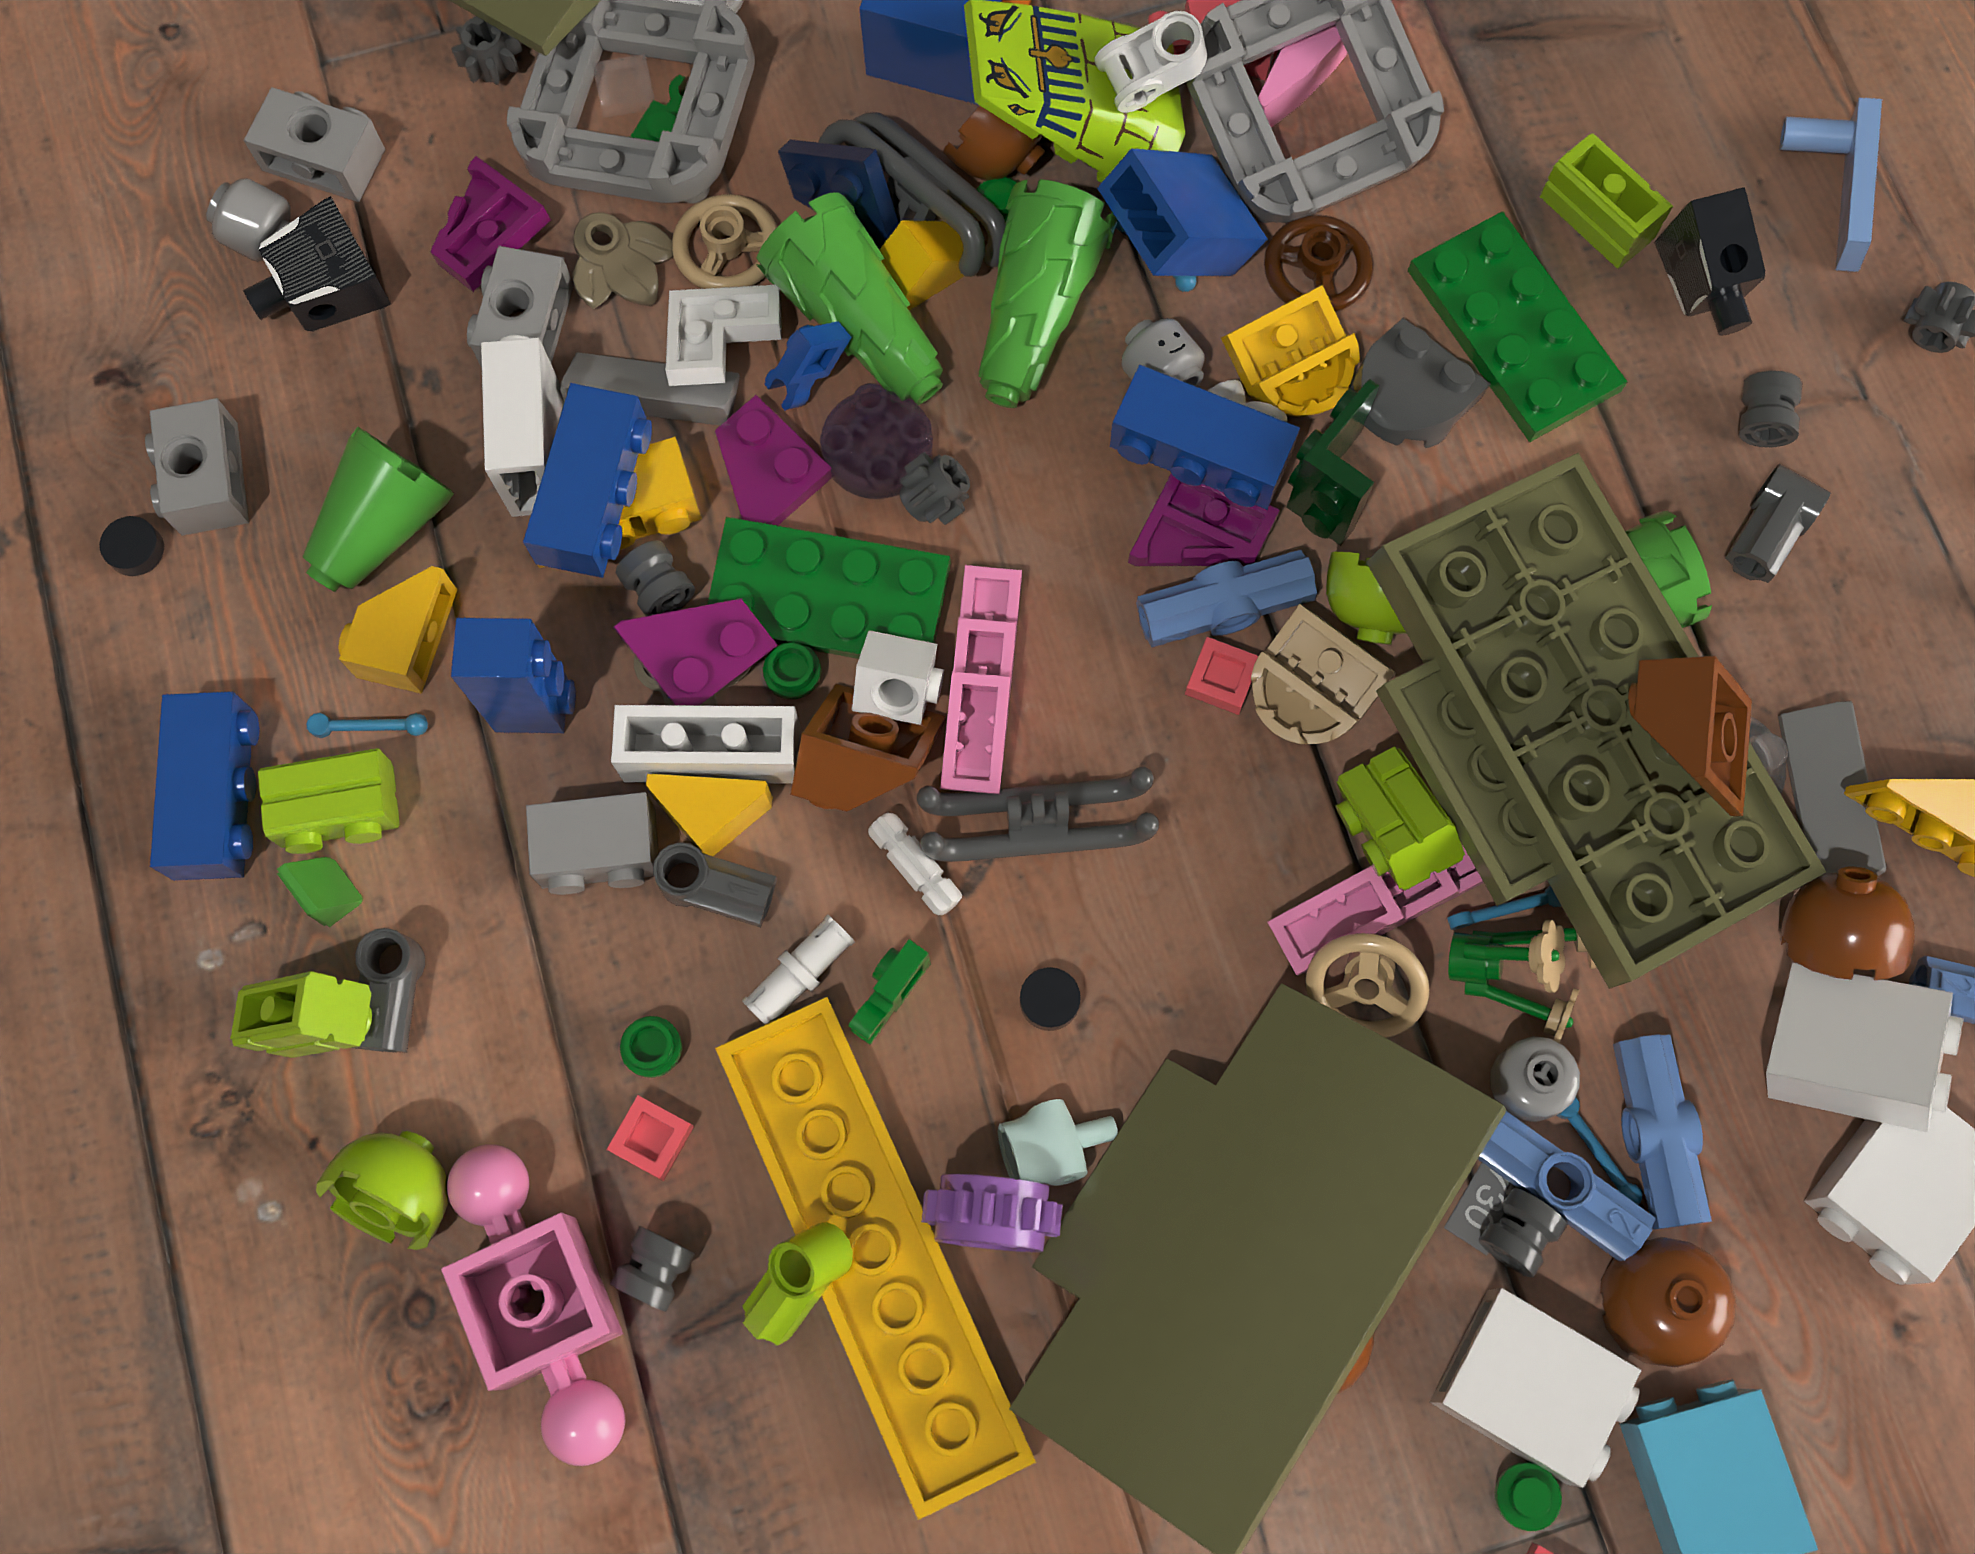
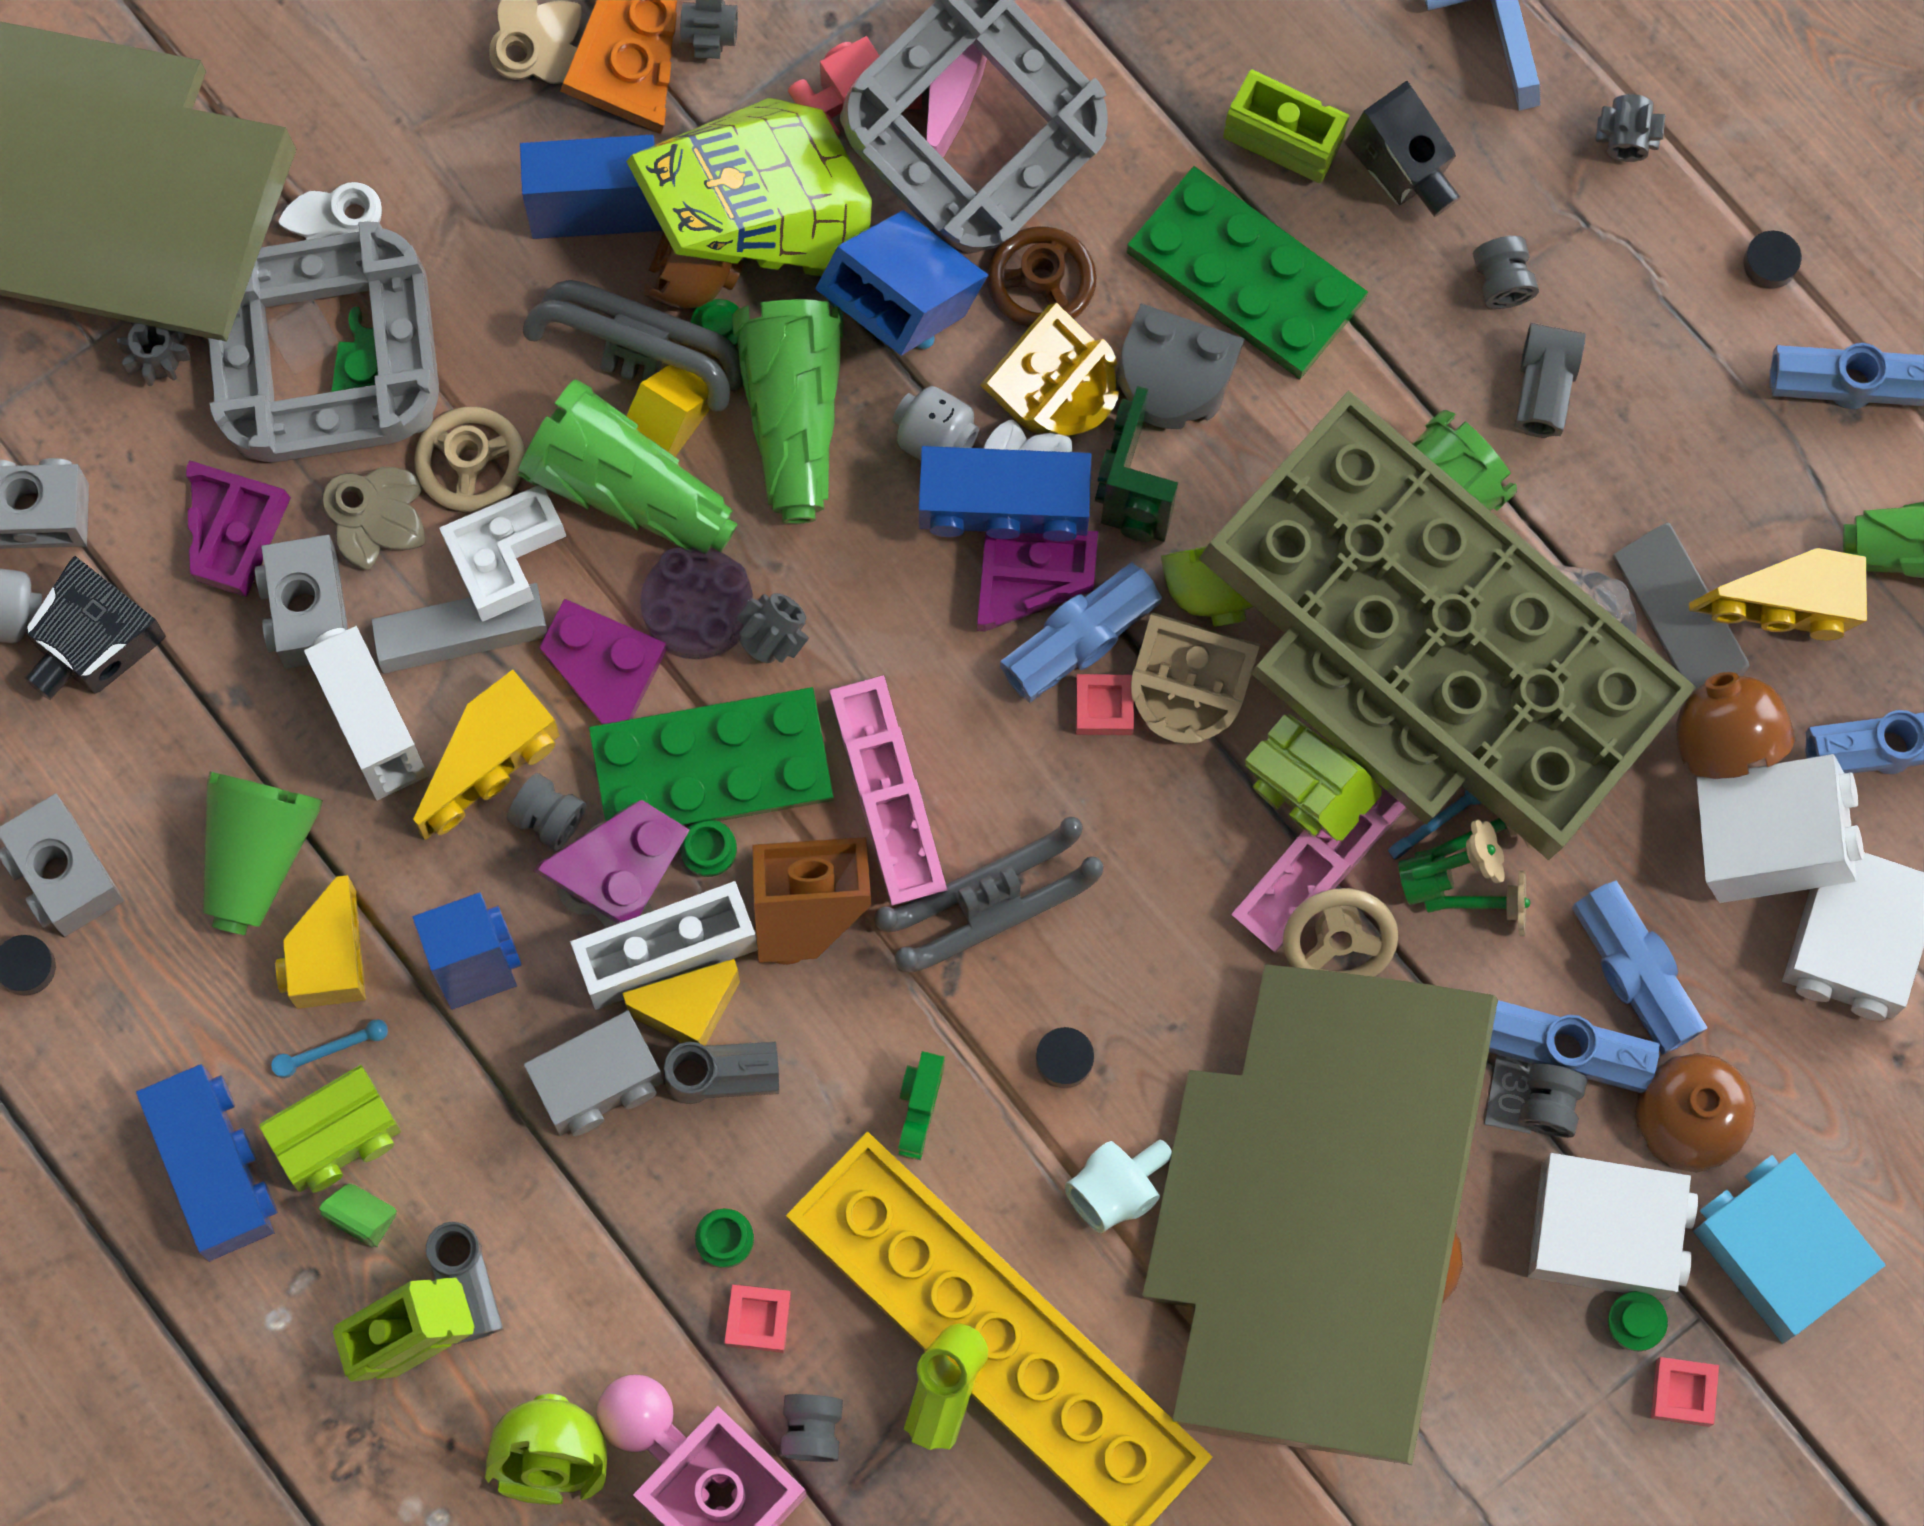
camera: 25 degrees left, 0 degrees up
(588, 481) = (457, 742): blue brick -> none
(798, 970) = (830, 1118): white pin -> none
(808, 357) = (606, 546): blue plate -> none
(849, 170) = (553, 359): dark blue wing -> none
(896, 677) = (812, 818): white brick -> none
(913, 864) = (894, 983): white axle -> none
(992, 1213) = (1092, 1260): medium lavender gear -> none
(1150, 65) = (820, 154): white piece -> none
(1516, 1085) = (1497, 960): light grey head -> none
(1629, 1190) = (1552, 978): dark azure hinge -> none
(1699, 720) = (1540, 600): dark orange slope -> none

